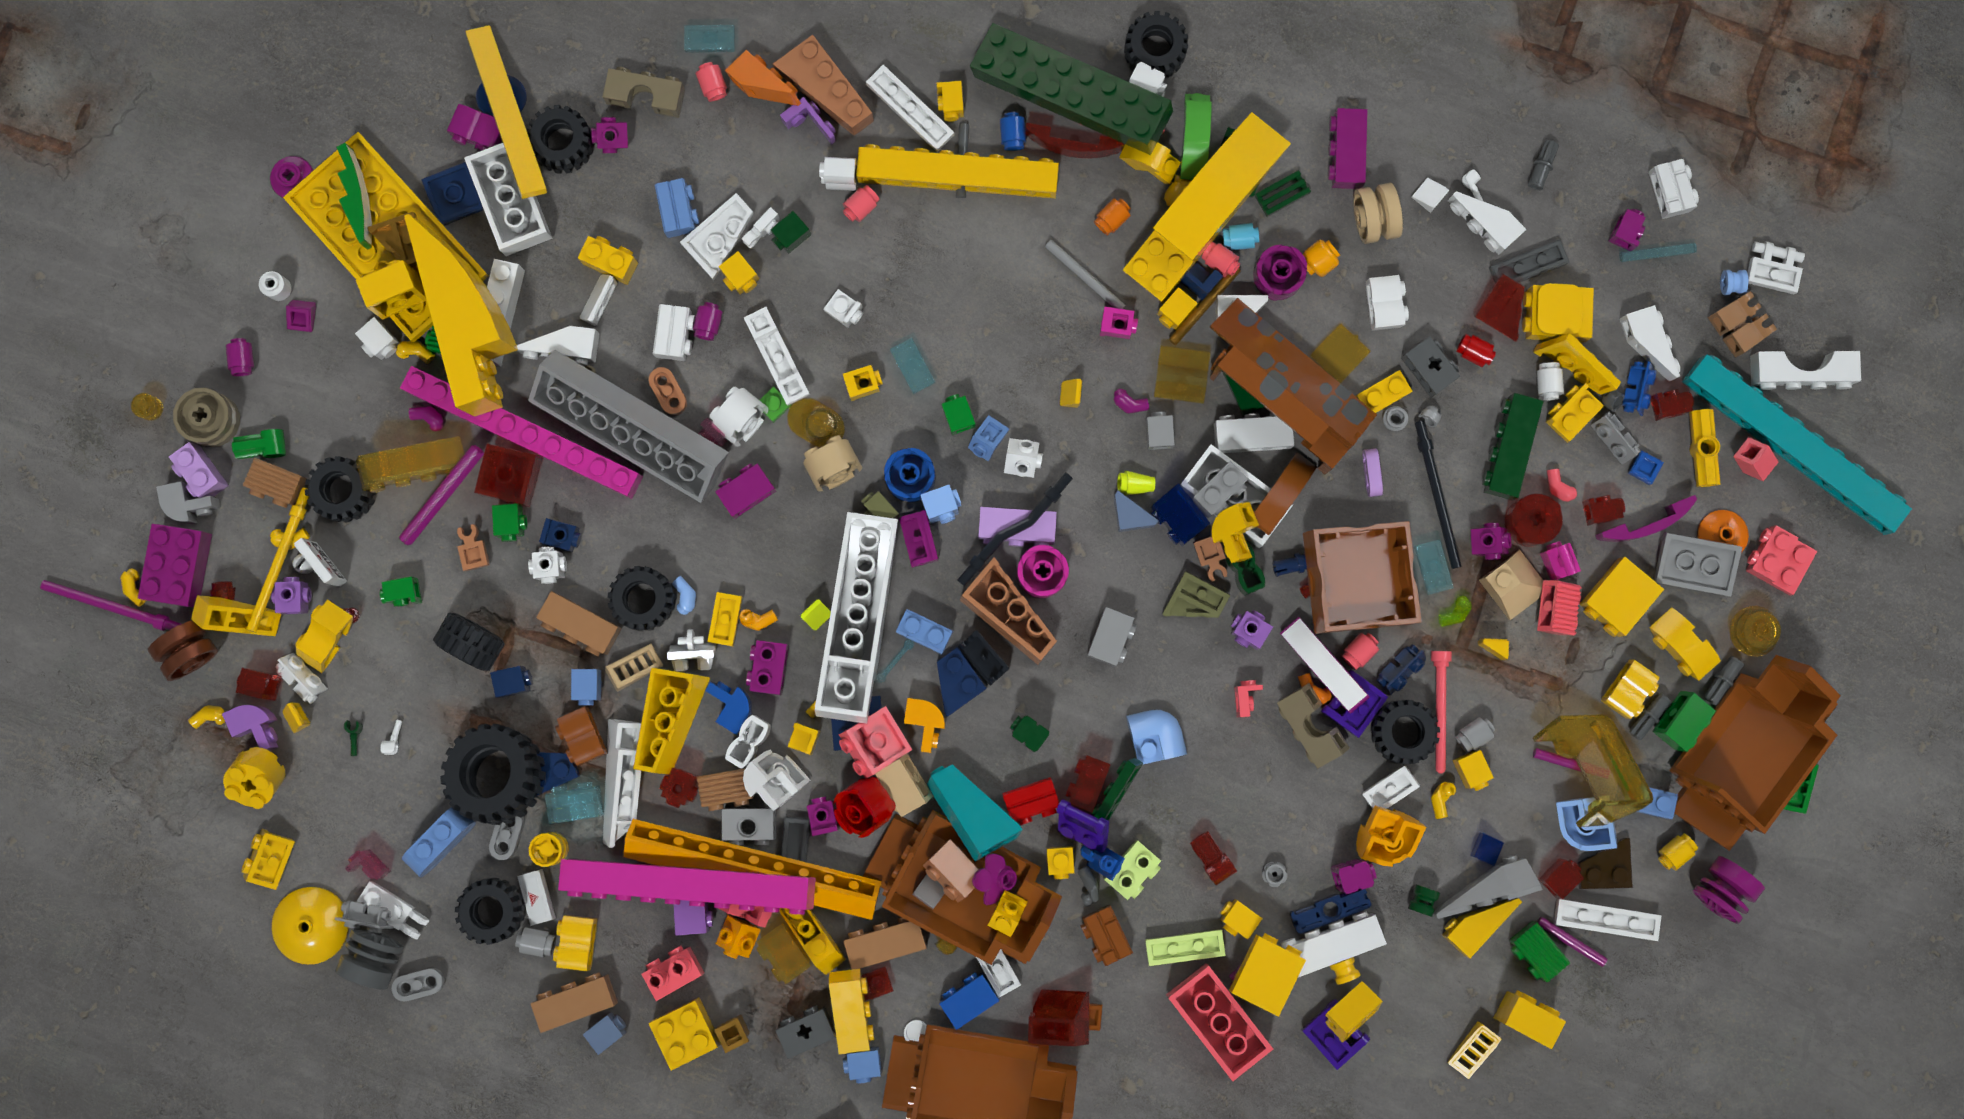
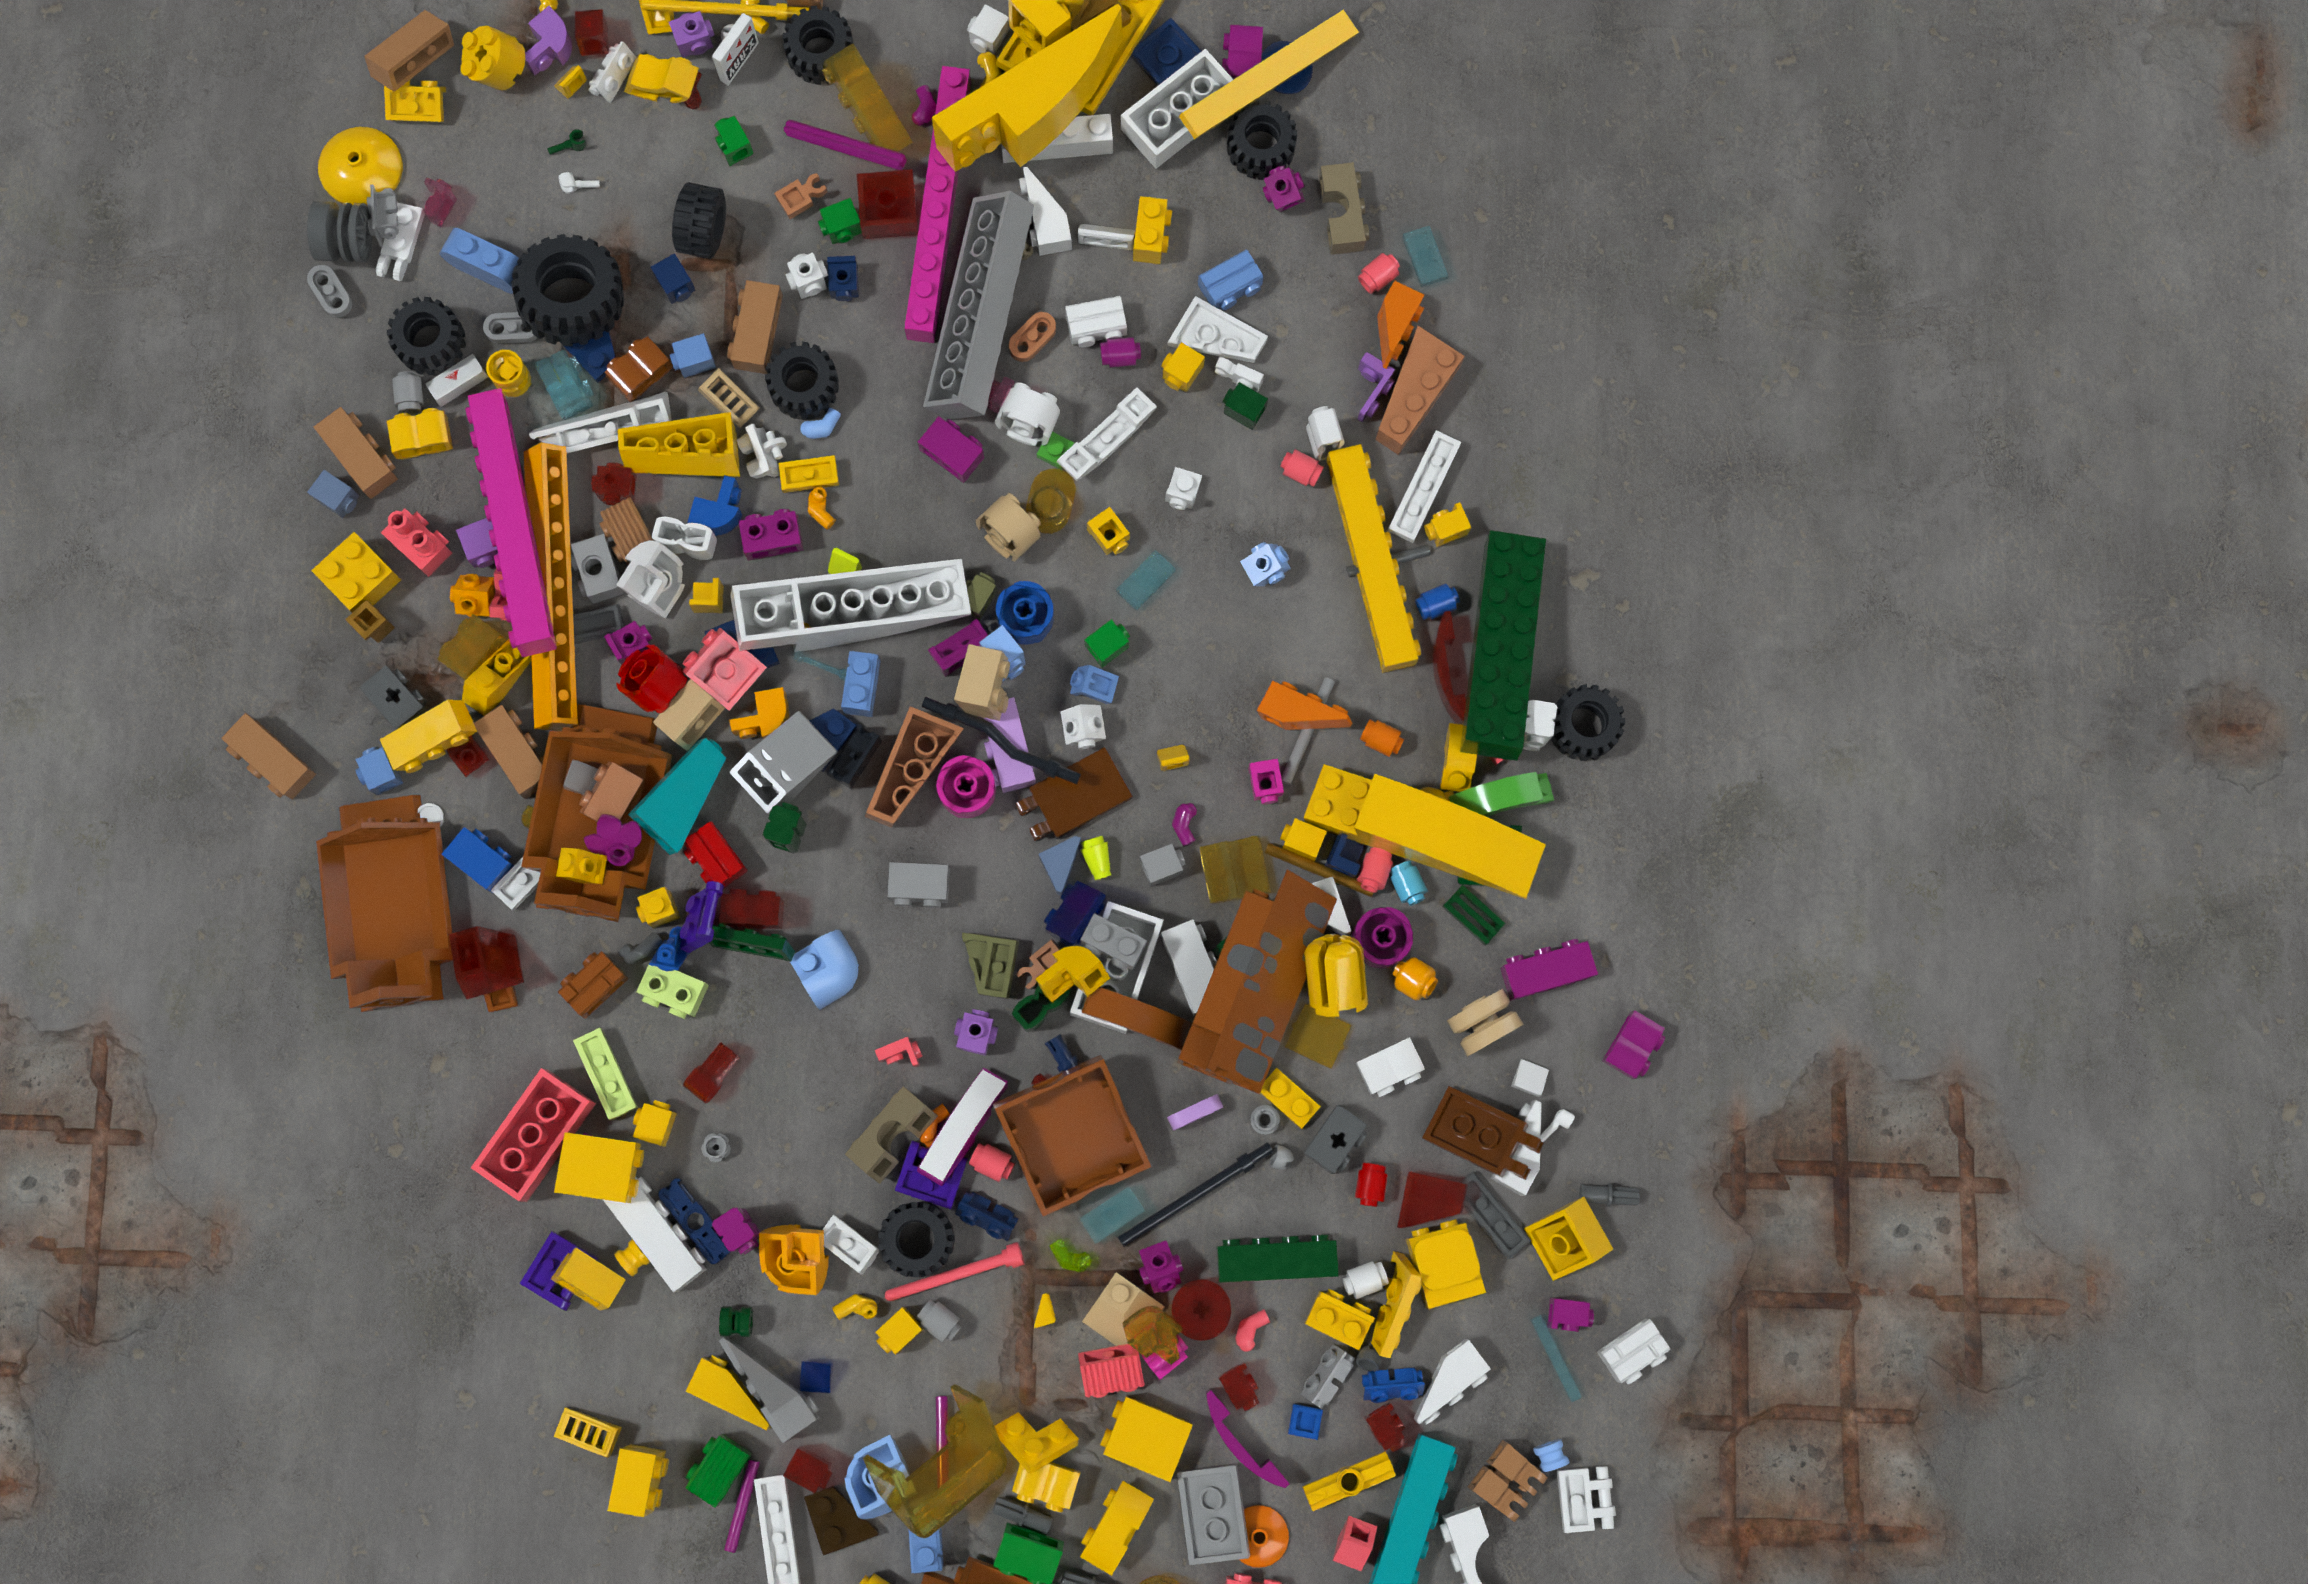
camera: 65 degrees right, 5 degrees down
(220, 849) = (409, 50): none -> medium nougat brick
(936, 268) = (1266, 564): none -> light blue brick
(965, 526) = (980, 683): none -> tan brick
(973, 716) = (783, 762): none -> light grey slope
(1067, 279) = (1295, 711): none -> orange slope
(1085, 492) = (1073, 805): none -> reddish brown tile
(1302, 319) = (1335, 975): none -> yellow cylinder
(1431, 102) = (1634, 1045): none -> magenta brick
(1464, 249) = (1480, 1134): none -> reddish brown tile
(1542, 562) = (1153, 1331): none -> clear yellow brick
(1569, 208) = (1568, 1239): none -> yellow slope
(1603, 687) = (1035, 1448): none -> yellow plate

